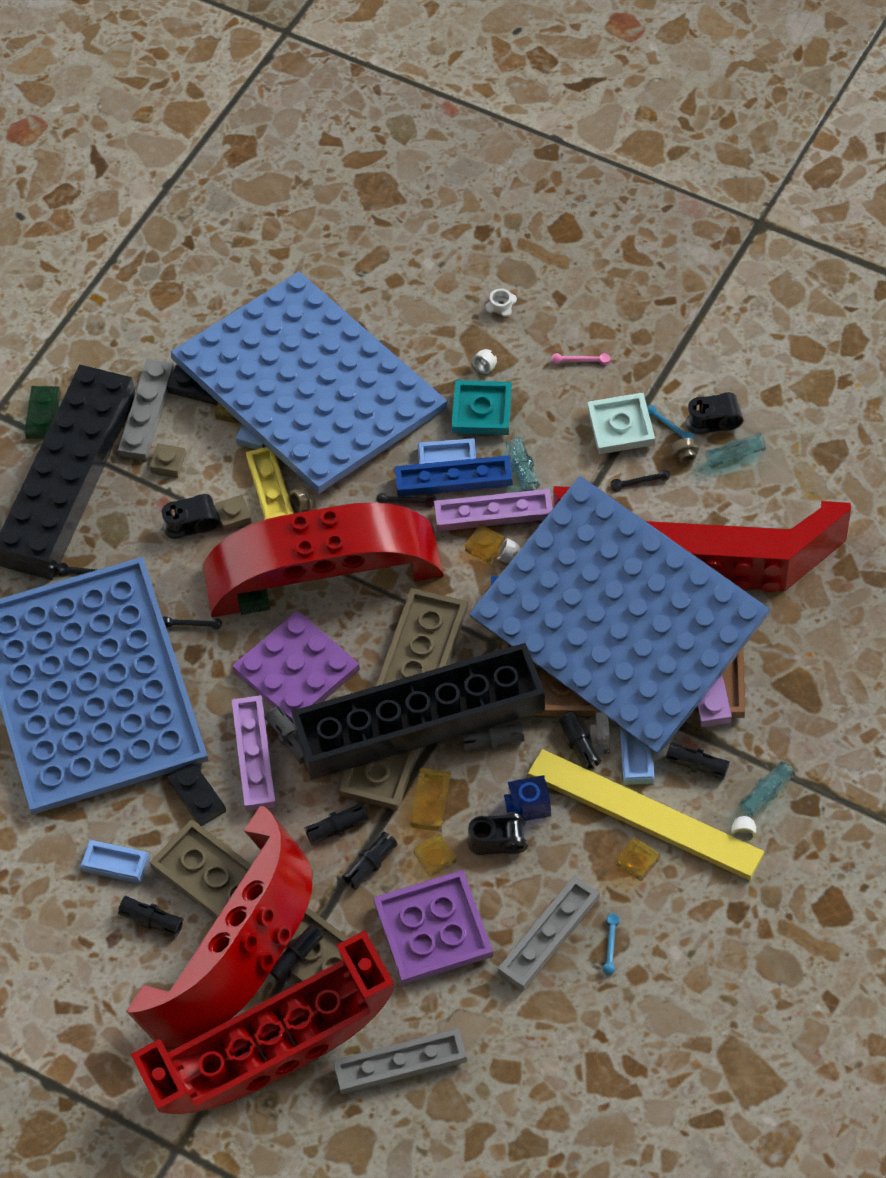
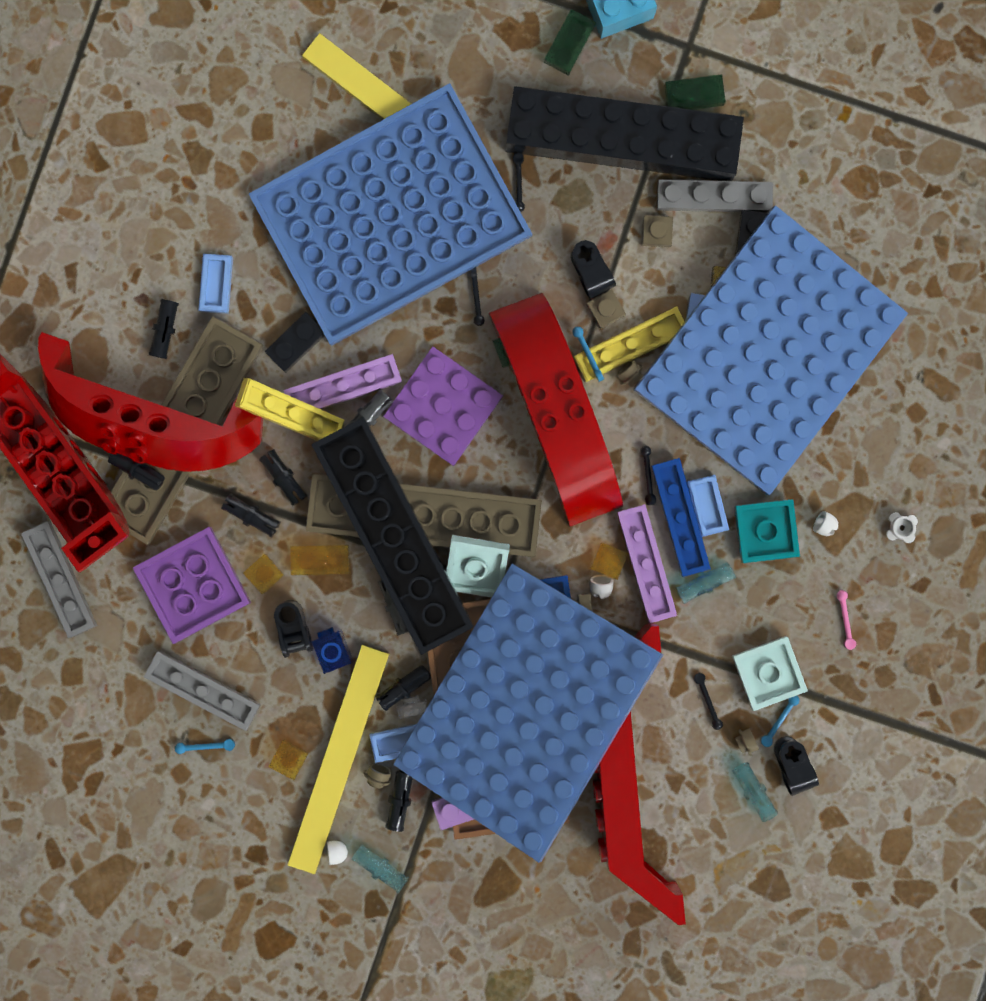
camera: 80 degrees right, 30 degrees up
(268, 788) = (286, 410): none -> light yellow tile
(462, 641) = (476, 565): none -> light aqua plate
(668, 777) = (378, 775): none -> dark tan plate

